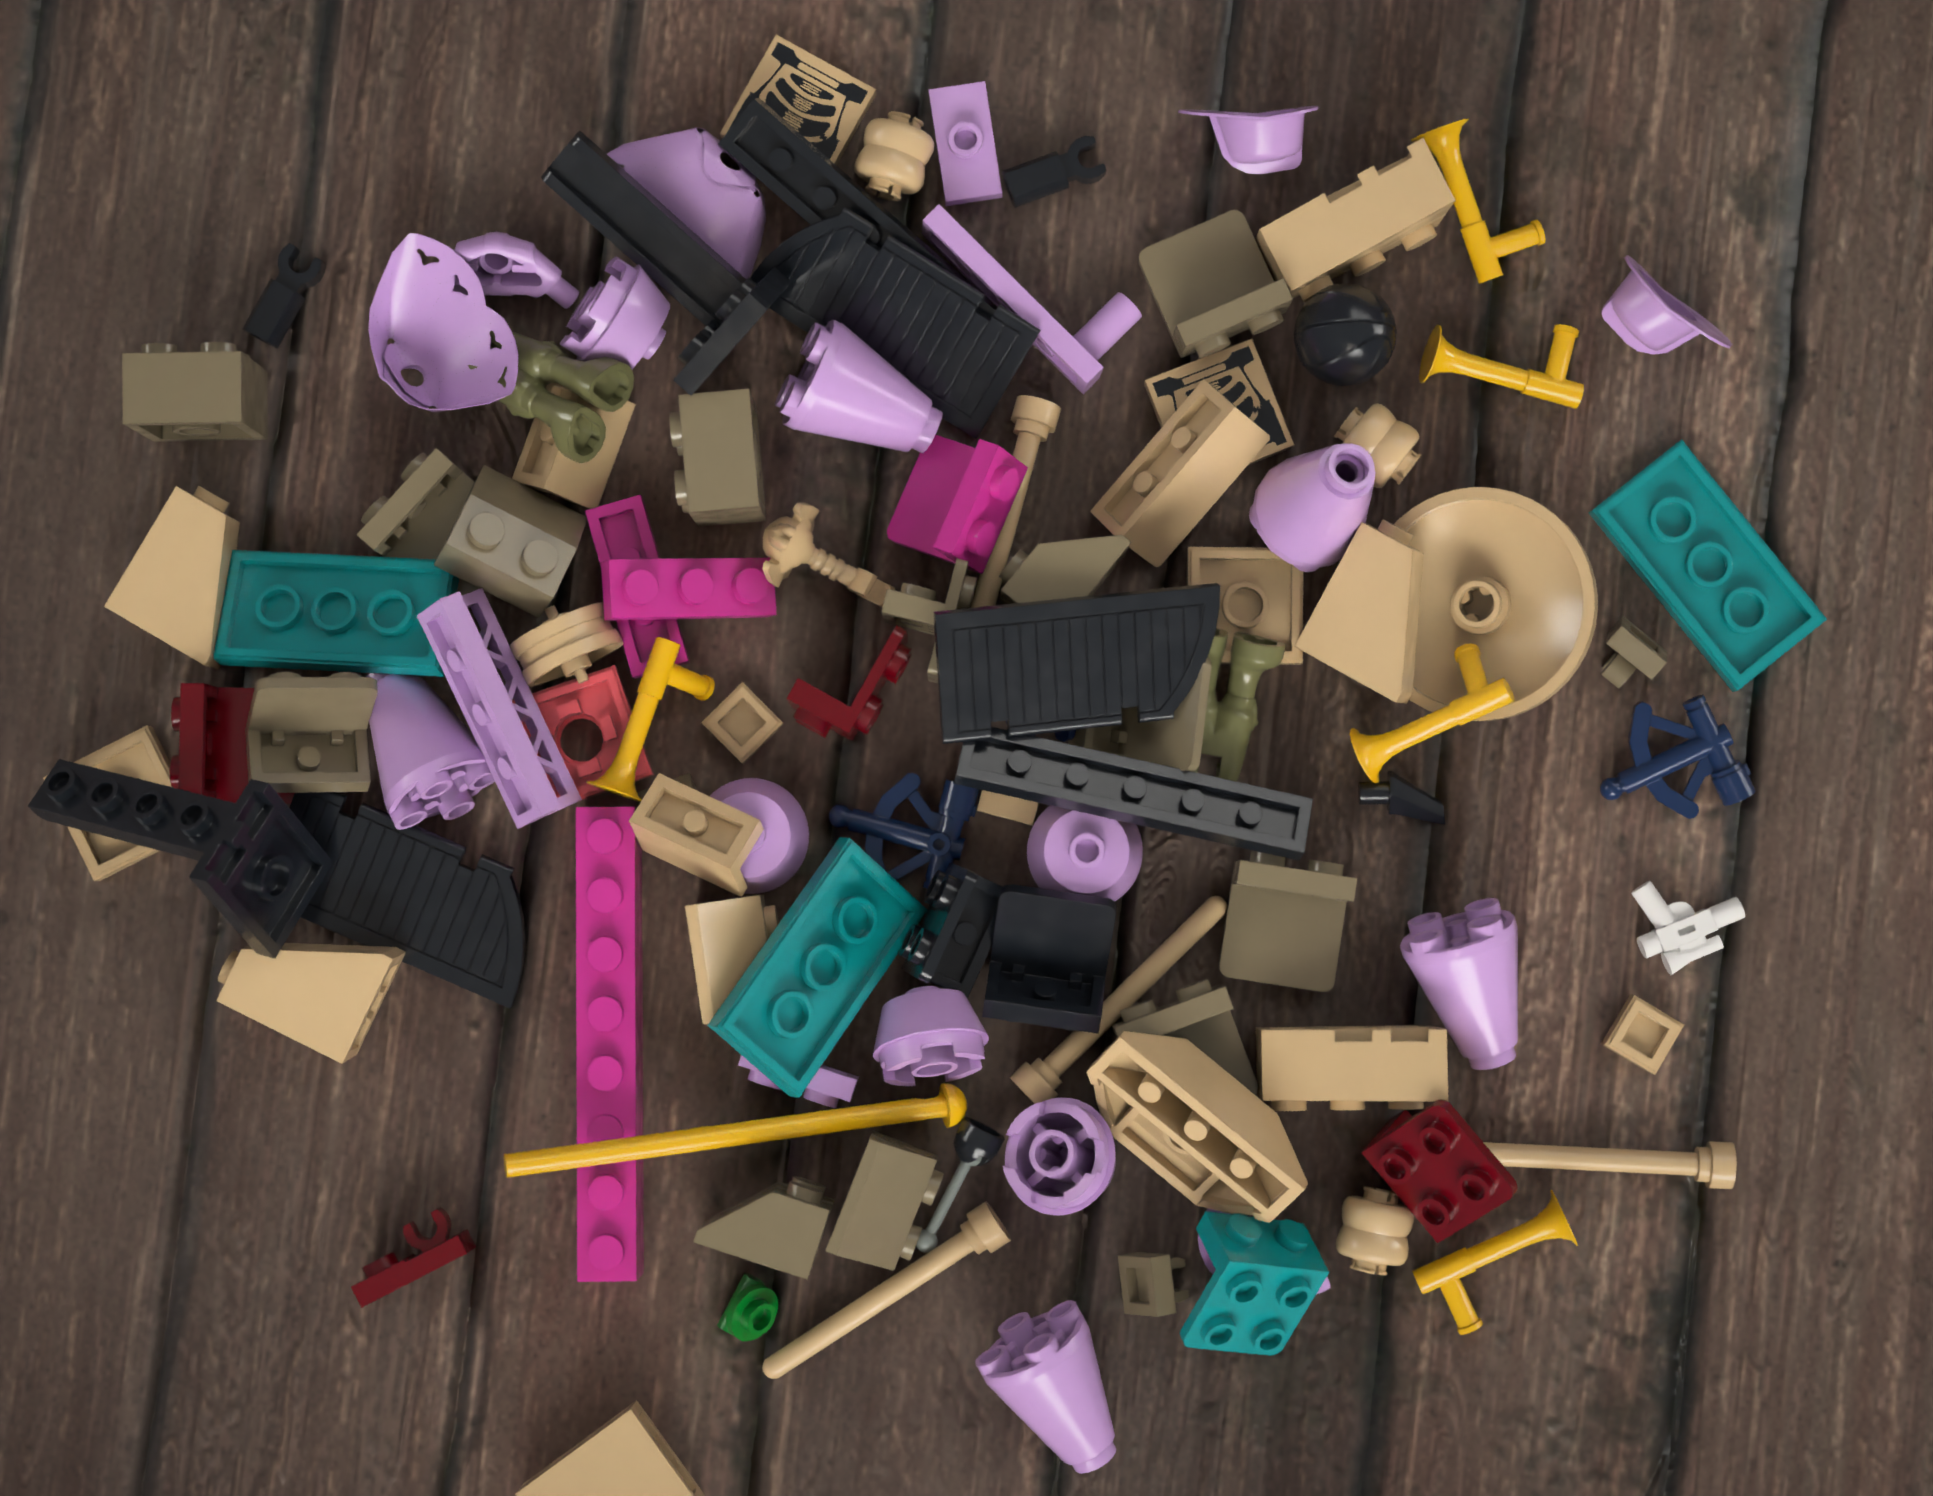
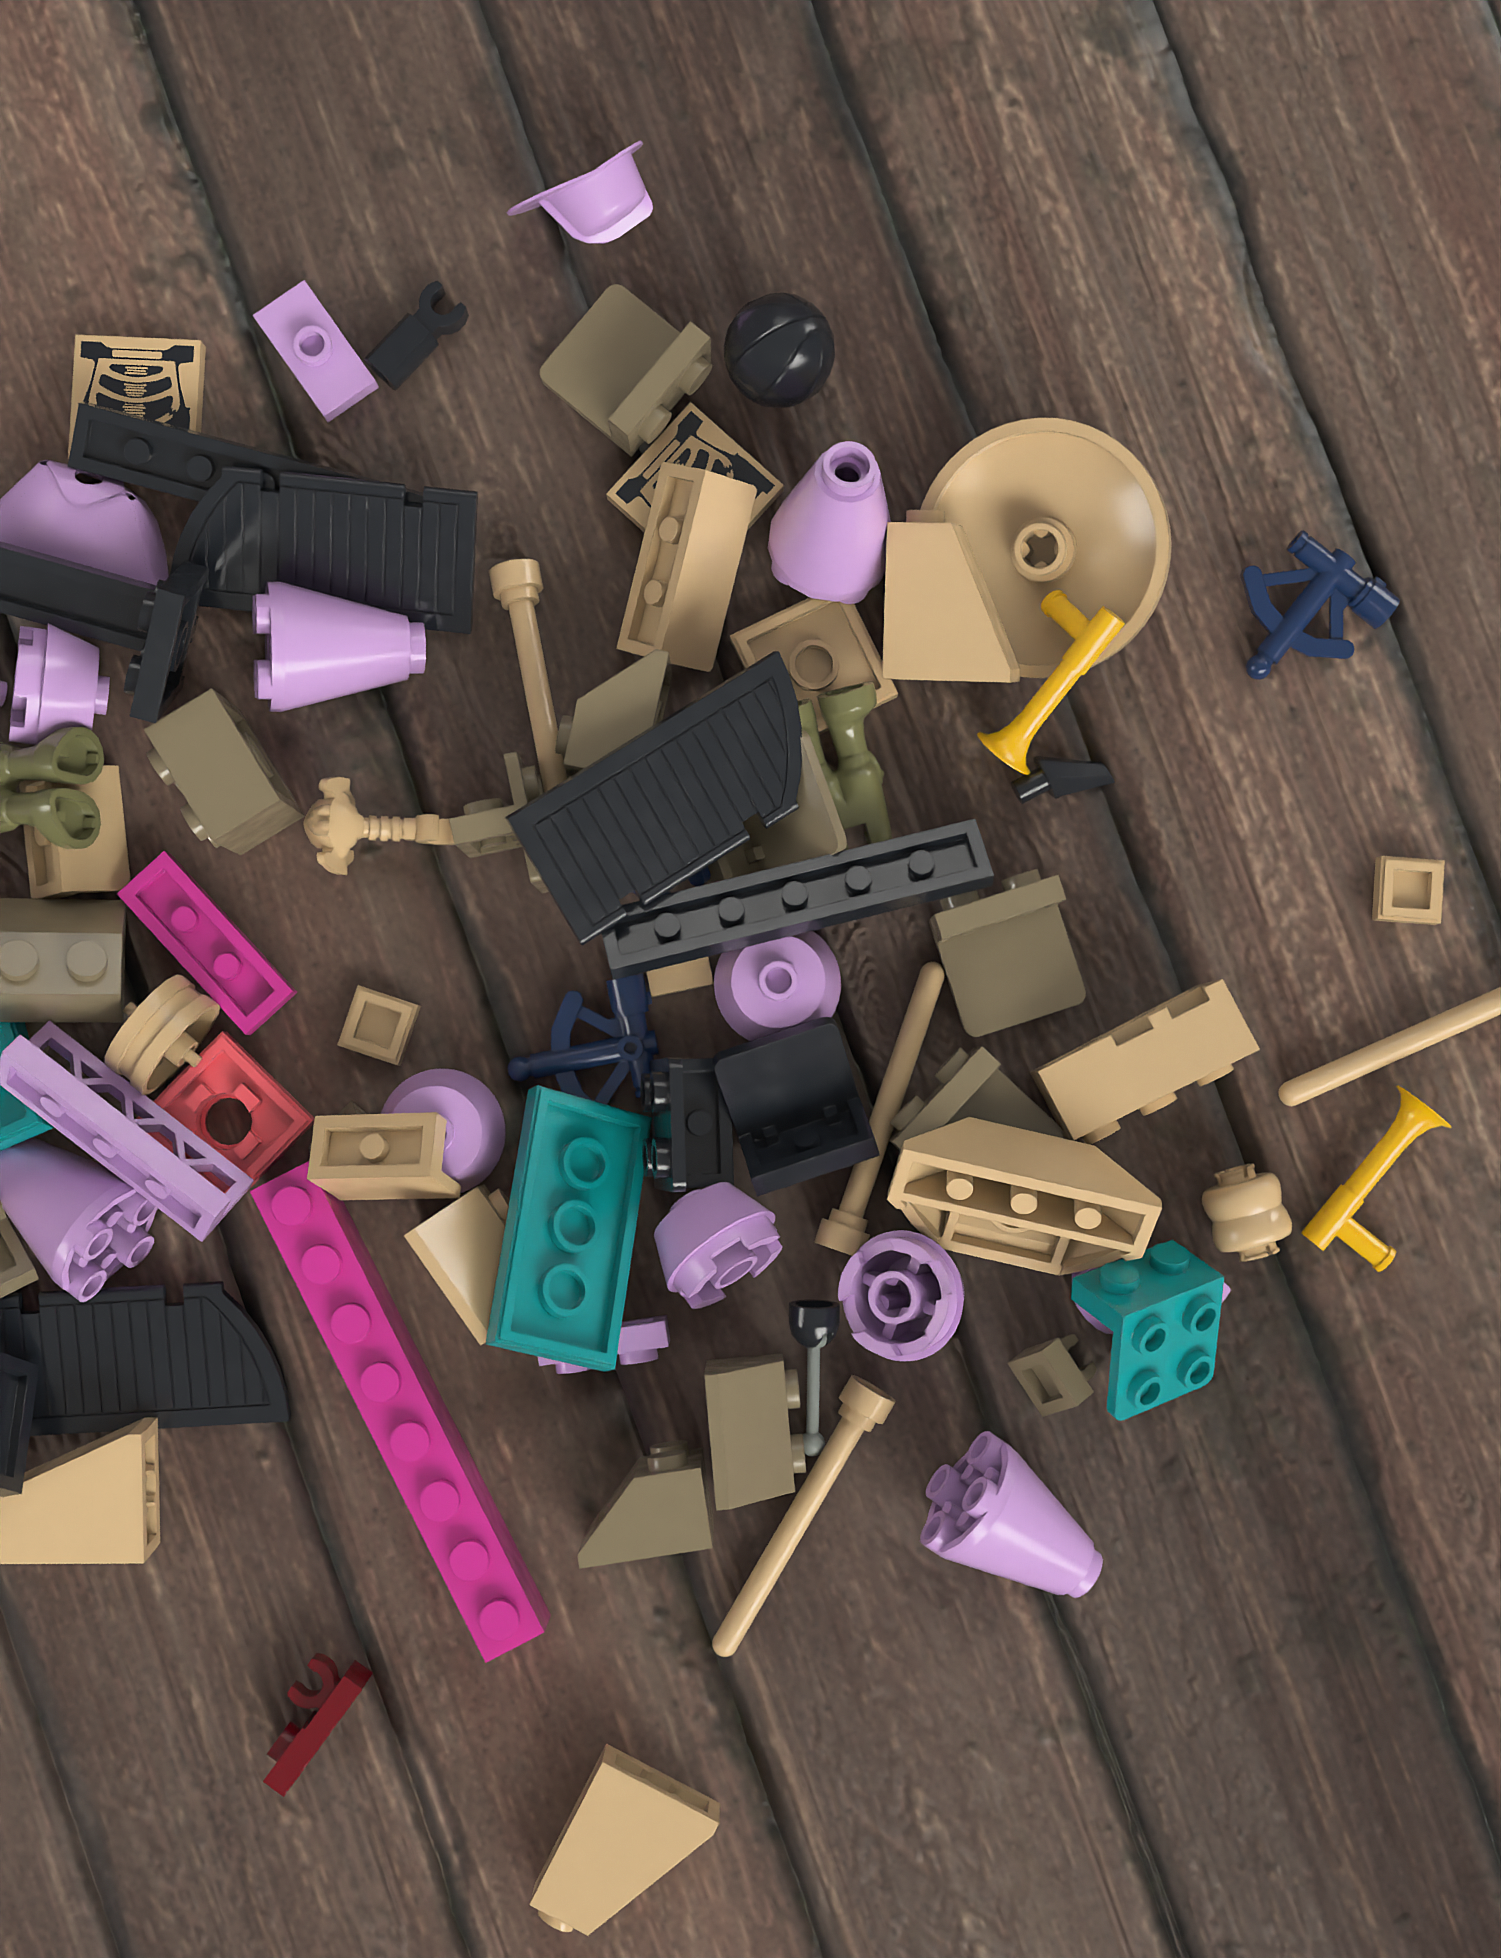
camera: 30 degrees left, 0 degrees up
(657, 674) = (267, 1017): yellow piece -> none
(686, 589) = (253, 921): dark pink plate -> none
(749, 1310) = (673, 1599): green plate -> none
(823, 712) = (450, 975): dark red bracket -> none
(894, 156) = (250, 395): tan piece -> none
(948, 1105) = (768, 1299): yellow bar -> none
(957, 501) = (480, 700): dark pink bracket -> none
(1072, 355) = (521, 504): lavender piece -> none
(1357, 223) = (739, 233): tan wedge -> none
(1385, 439) = (874, 429): tan piece -> none
(1439, 1168) = (1282, 1119): dark red bracket -> none
(1470, 977) = (1215, 917): lavender cone -> none
(1482, 248) = (871, 205): yellow piece -> none
(1551, 386) = (1004, 306): yellow piece -> none
(1632, 651) = (1212, 524): dark tan tile -> none
(1652, 317) = (1065, 190): lavender piece -> none
(1680, 929) = (1392, 769): white piece -> none
(1707, 566) = (1243, 405): teal tile -> none

